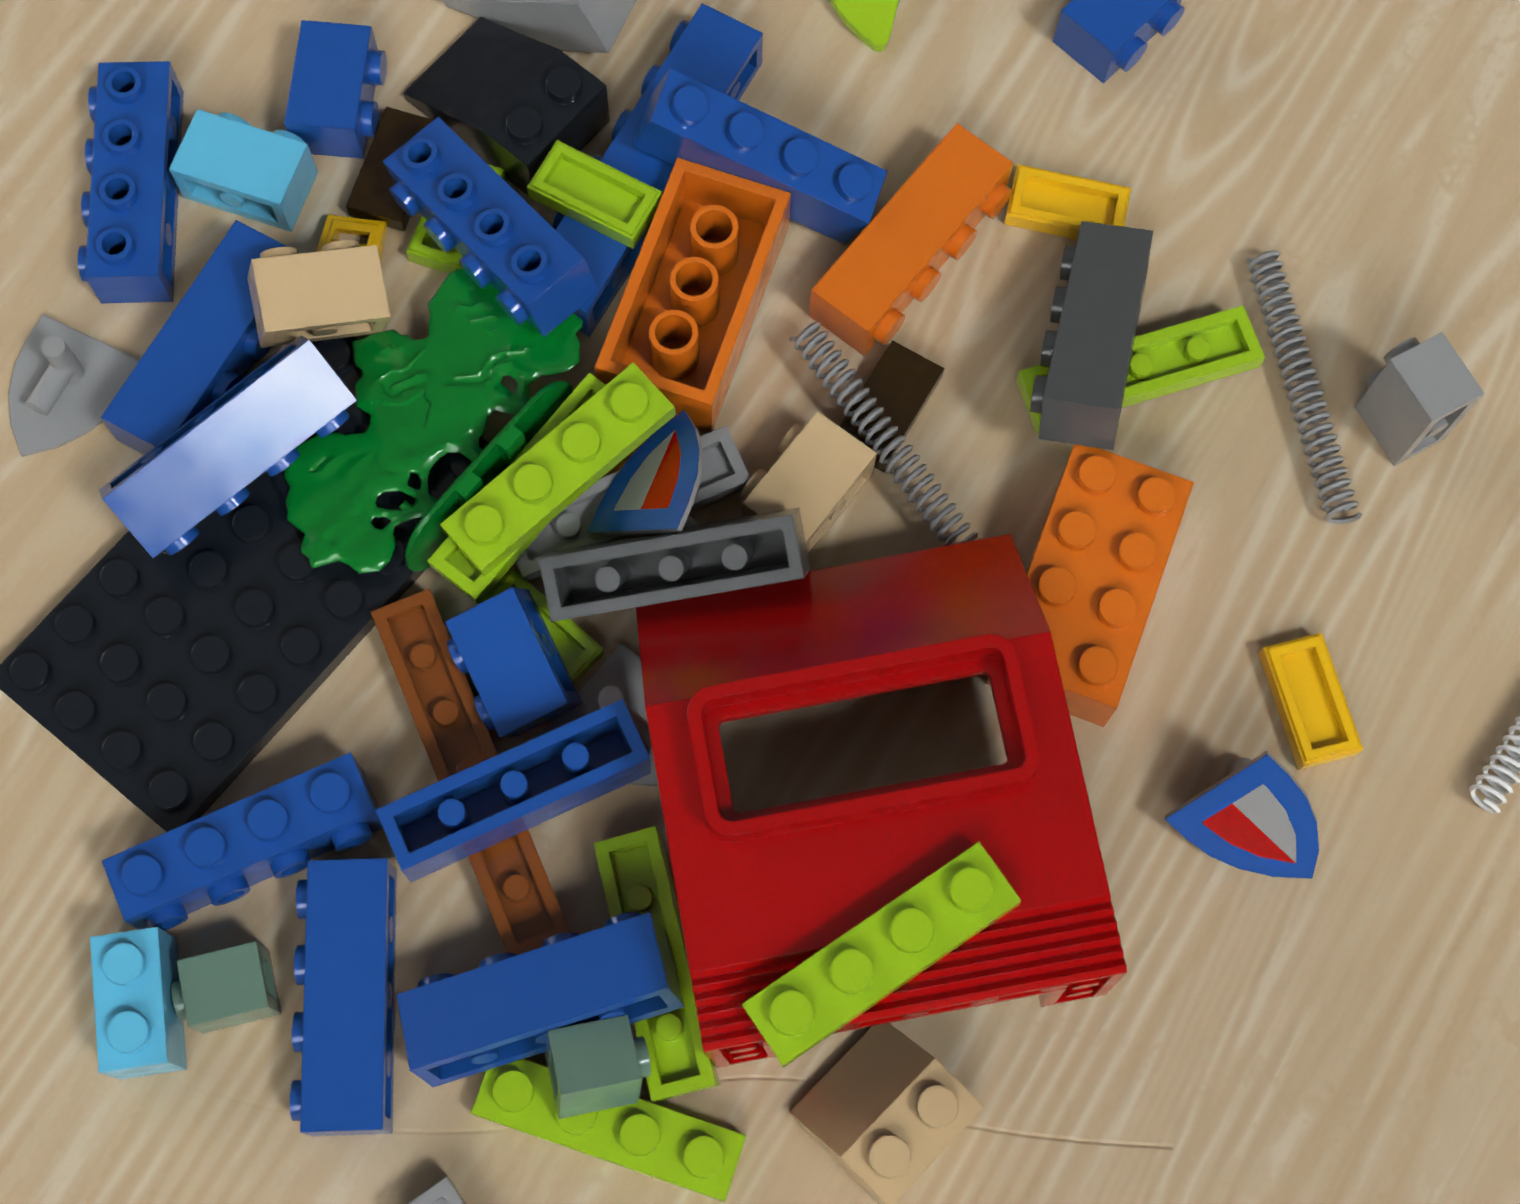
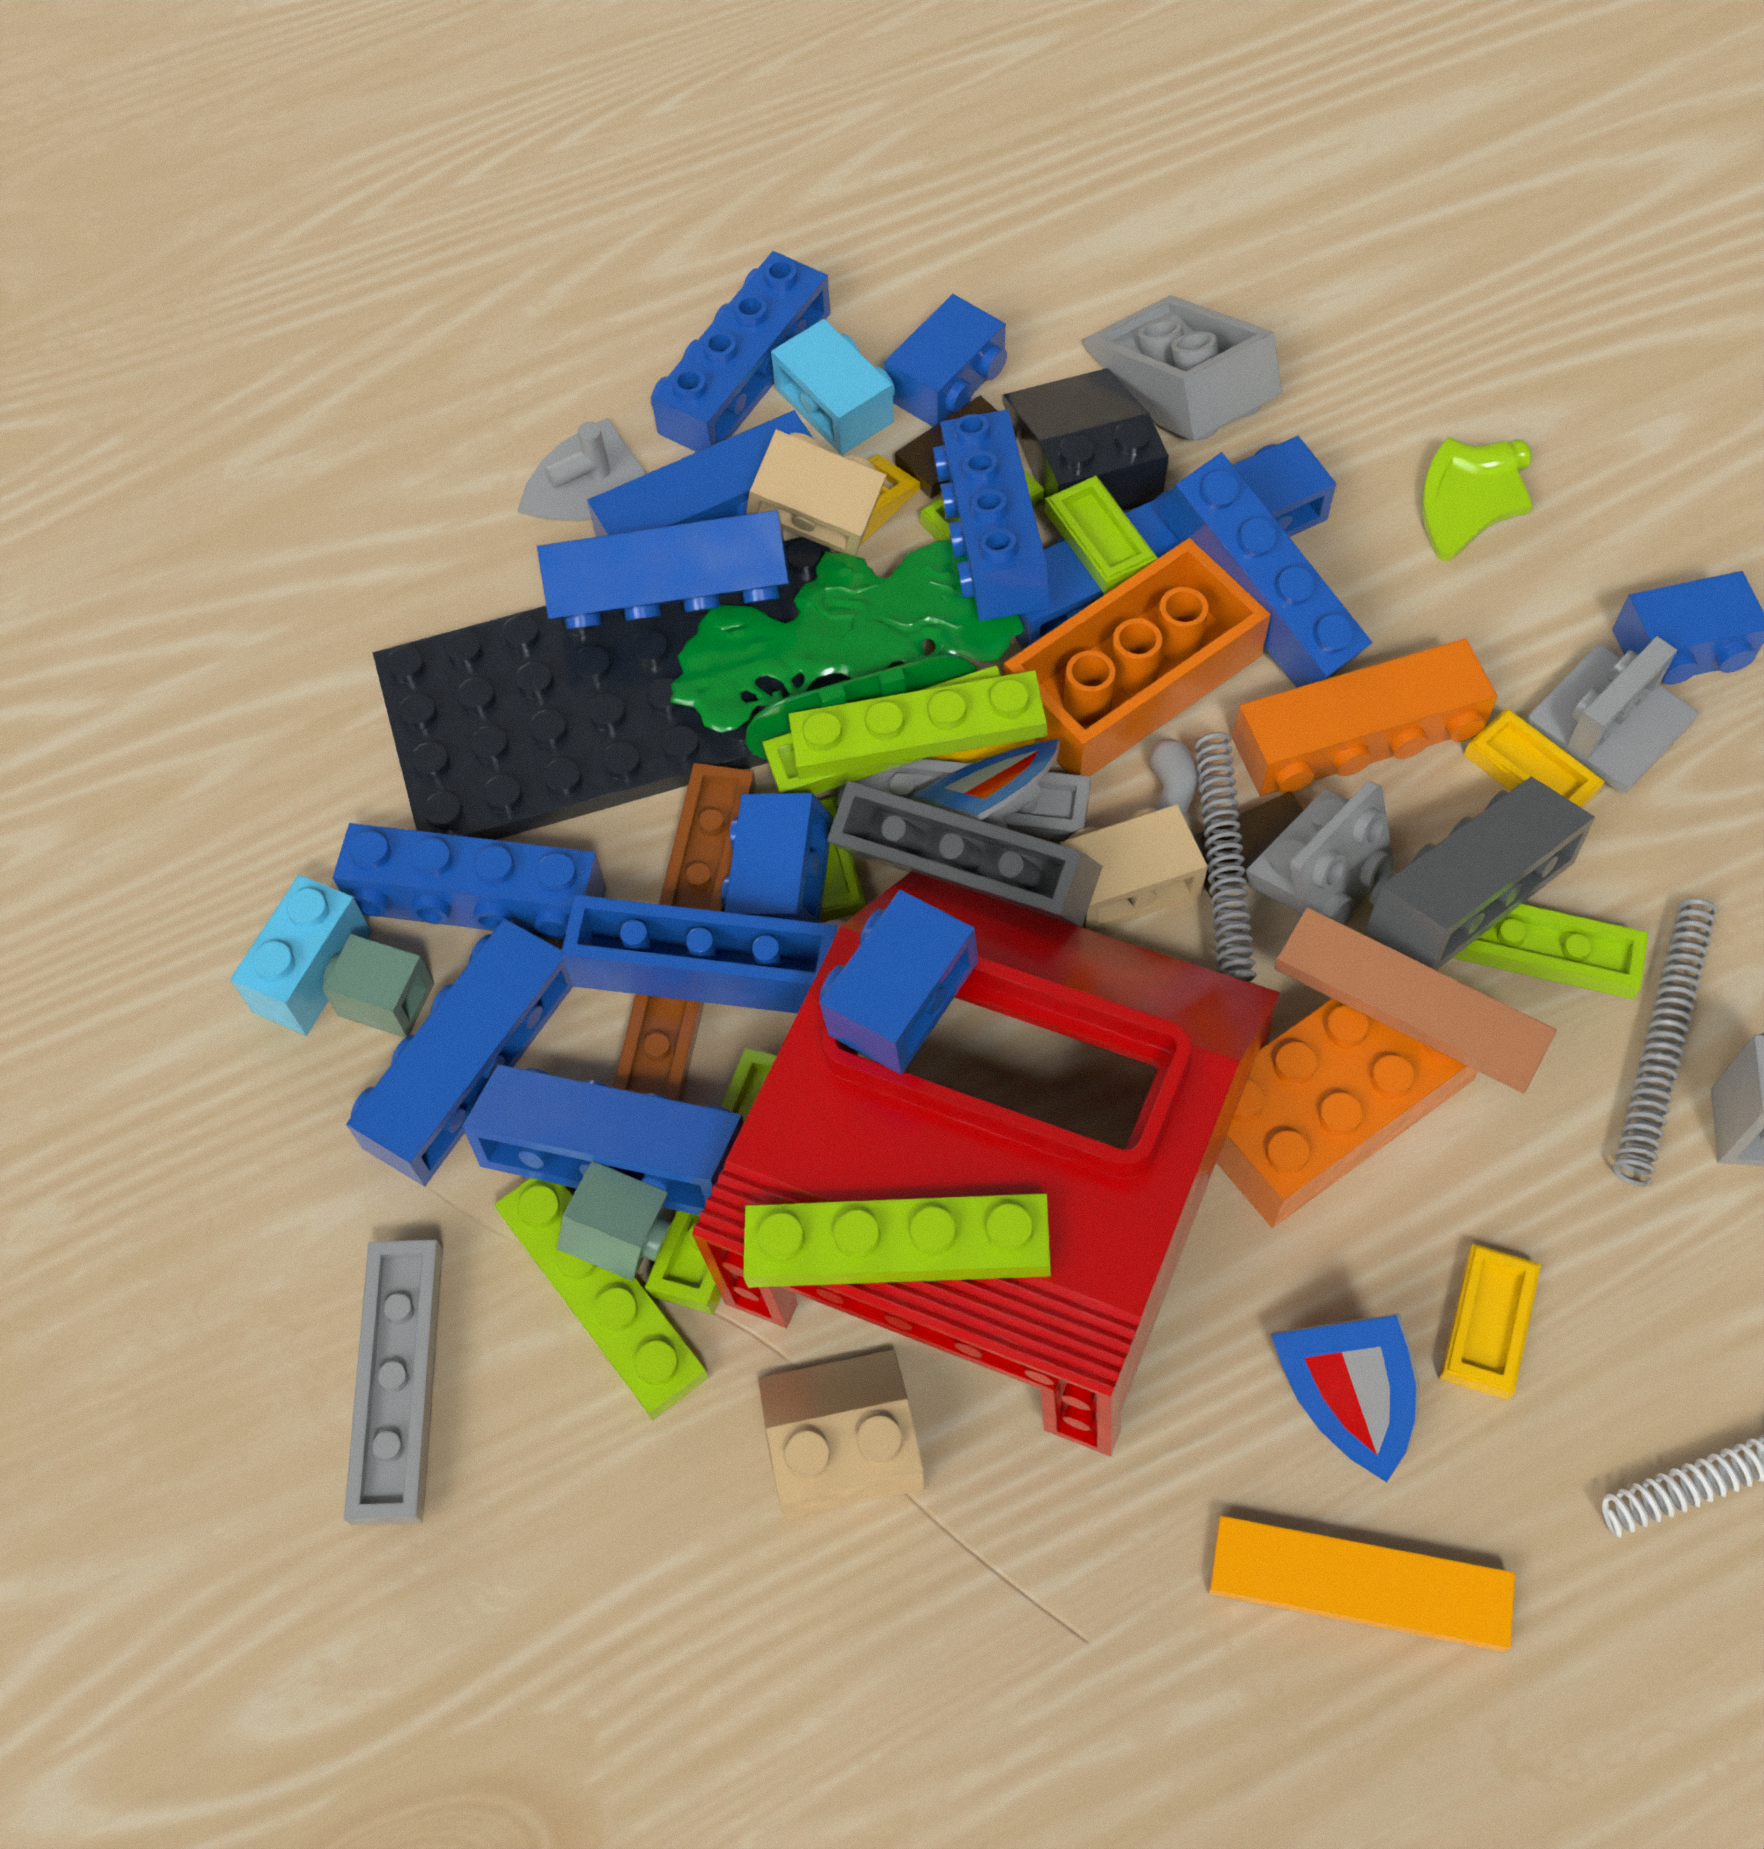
camera: 40 degrees right, 10 degrees down
(748, 736) = (898, 980): none -> blue brick
(791, 378) = (1176, 772): none -> light grey arm
(962, 388) = (1328, 855): none -> light grey bracket
(1104, 122) = (1616, 713): none -> light grey bracket
(1118, 478) = (1415, 1000): none -> nougat tile
(1341, 970) = (1363, 1584): none -> light orange tile

